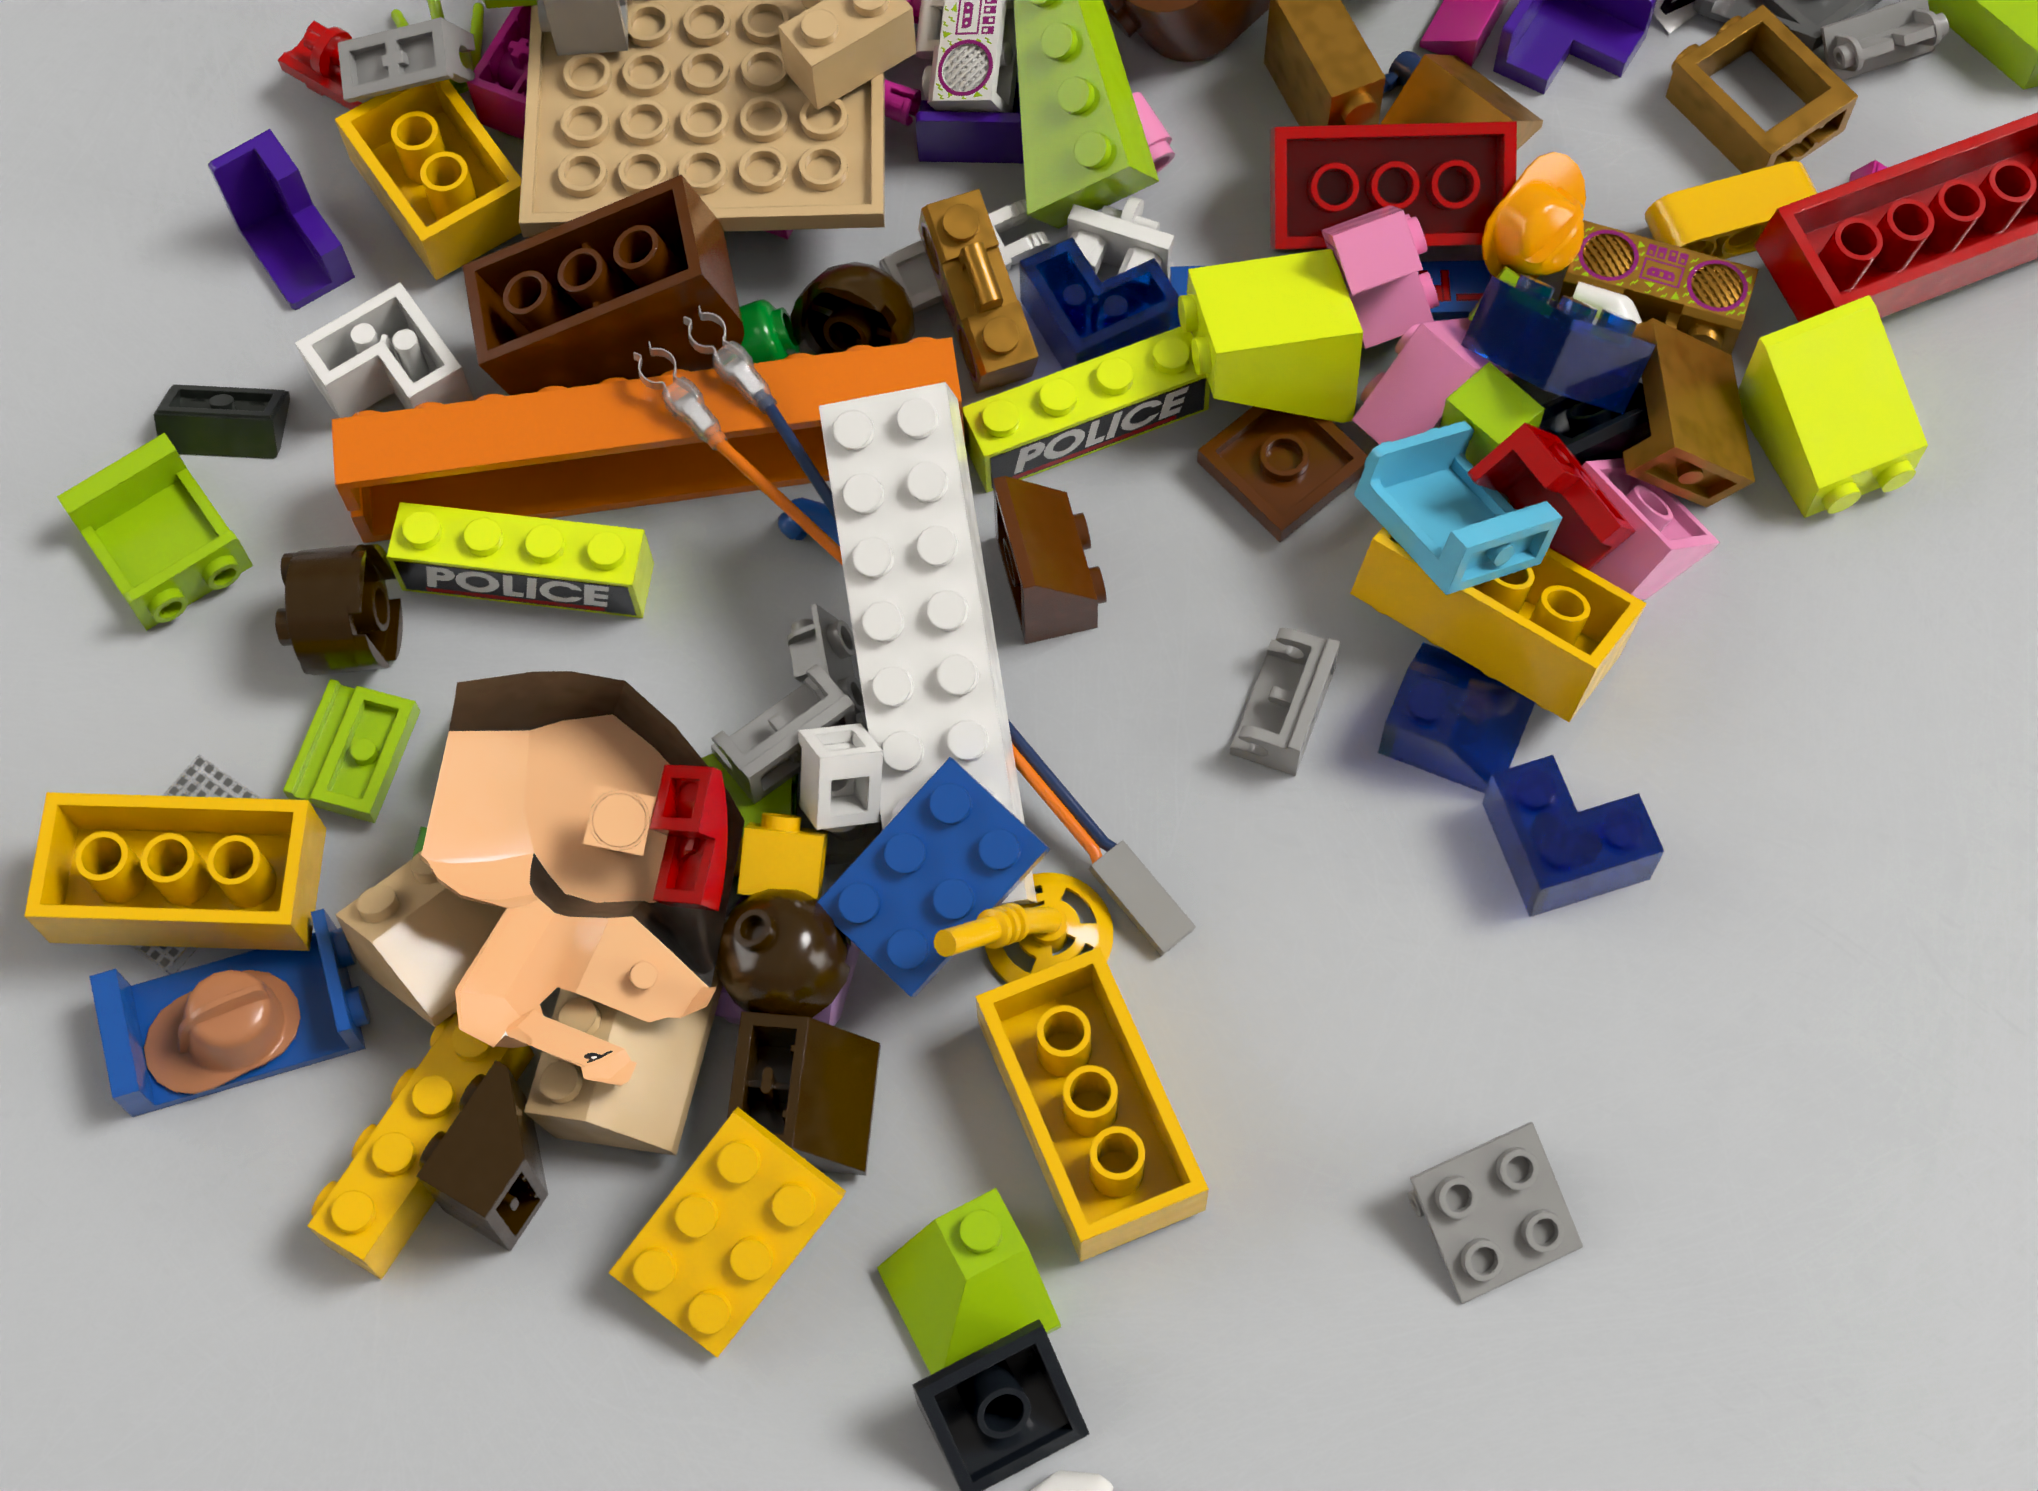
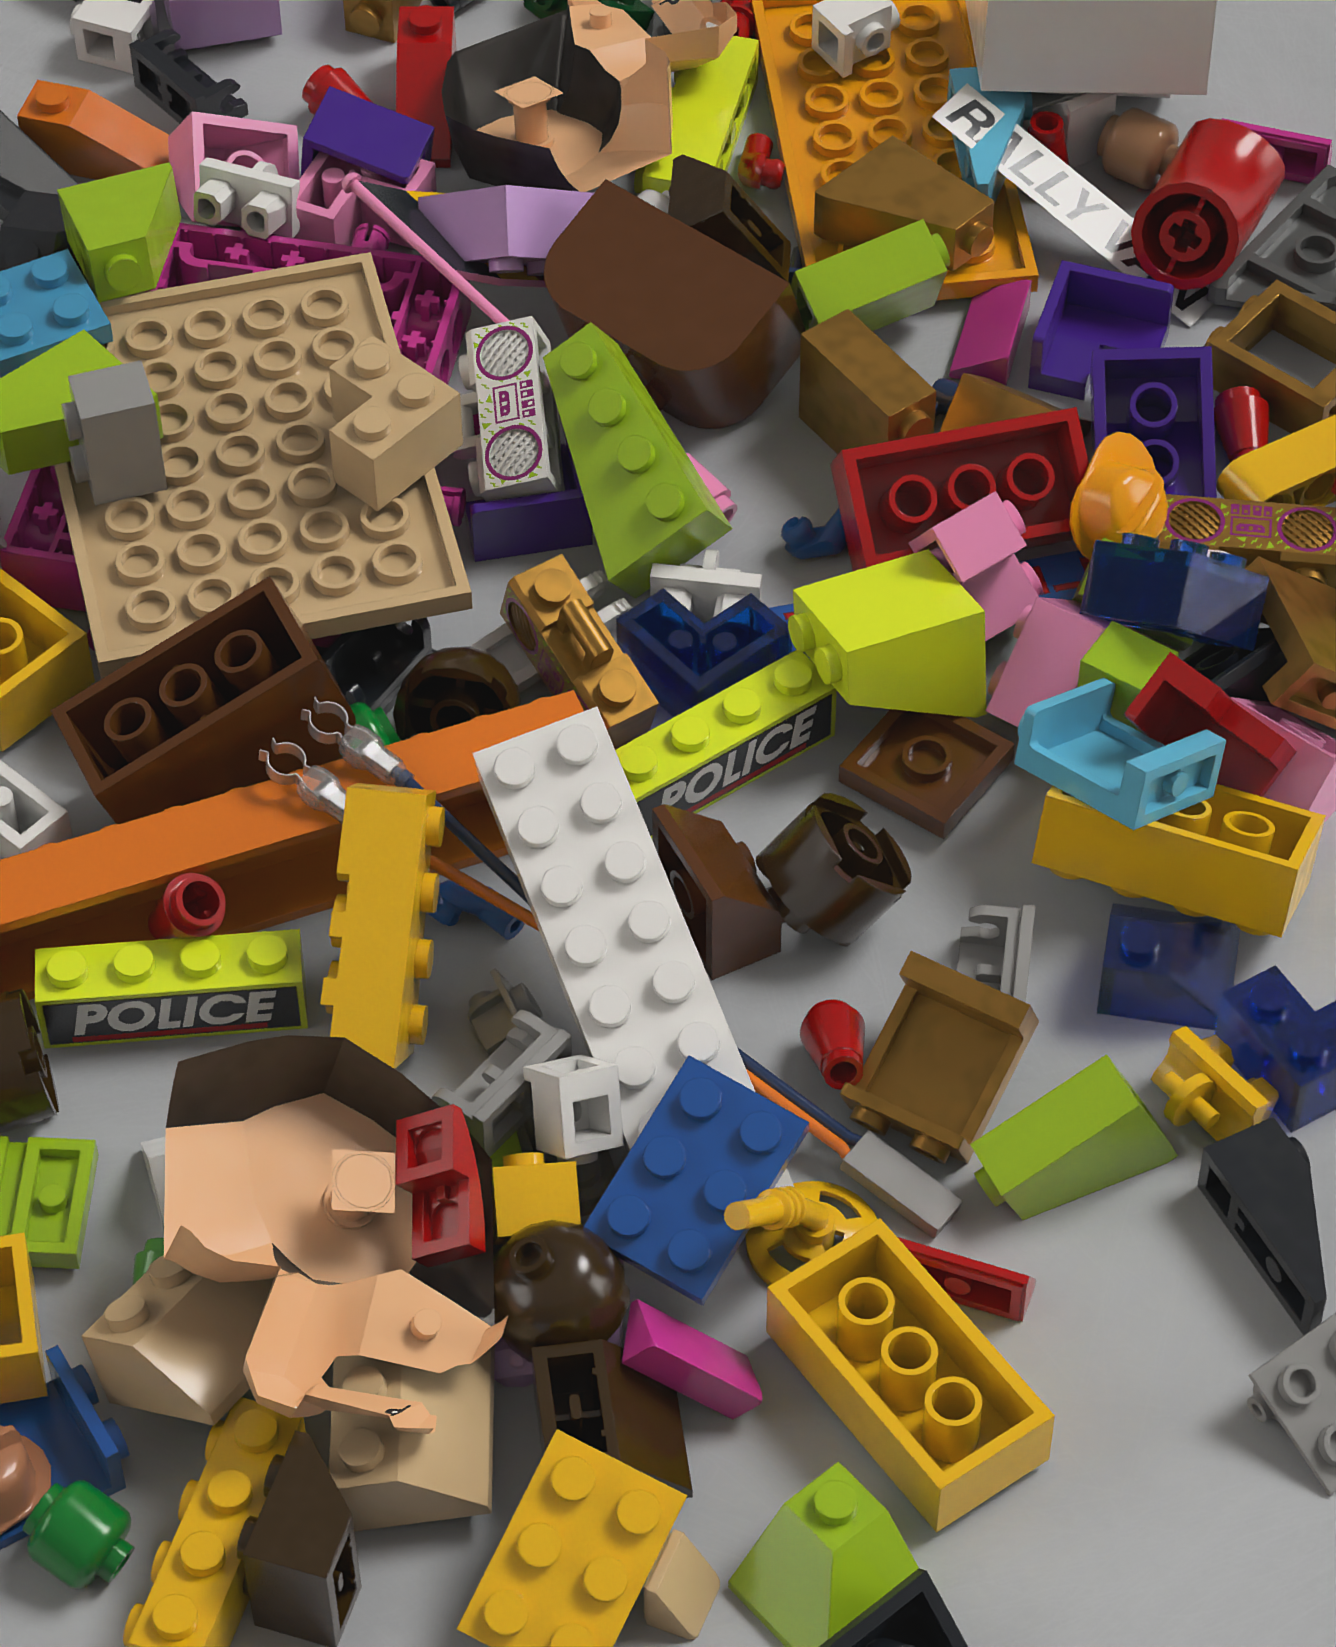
camera: 15 degrees left, 15 degrees down
(303, 1095) = (79, 1534): none -> green head
(558, 490) = (188, 908): none -> red cone
(708, 553) = (383, 919): none -> yellow wedge
(783, 262) = (376, 660): none -> black hinge
(828, 1268) = (679, 1588): none -> tan slope
(892, 1044) = (689, 1361): none -> dark pink slope
(1116, 742) = (835, 1041): none -> red cone
(1158, 566) = (834, 870): none -> dark brown brick
(1176, 1006) = (976, 1282): none -> red slope
(1206, 786) = (941, 1060): none -> pearl gold panel
(1240, 202) = (810, 542): none -> blue arm
(1311, 895) = (1071, 1143): none -> lime slope
(1456, 866) = (1207, 1088): none -> yellow hips
(1482, 991) = (1266, 1200): none -> black slope
(1611, 127) = (1165, 404): none -> dark purple slope
(1688, 151) = (1241, 420): none -> red cone

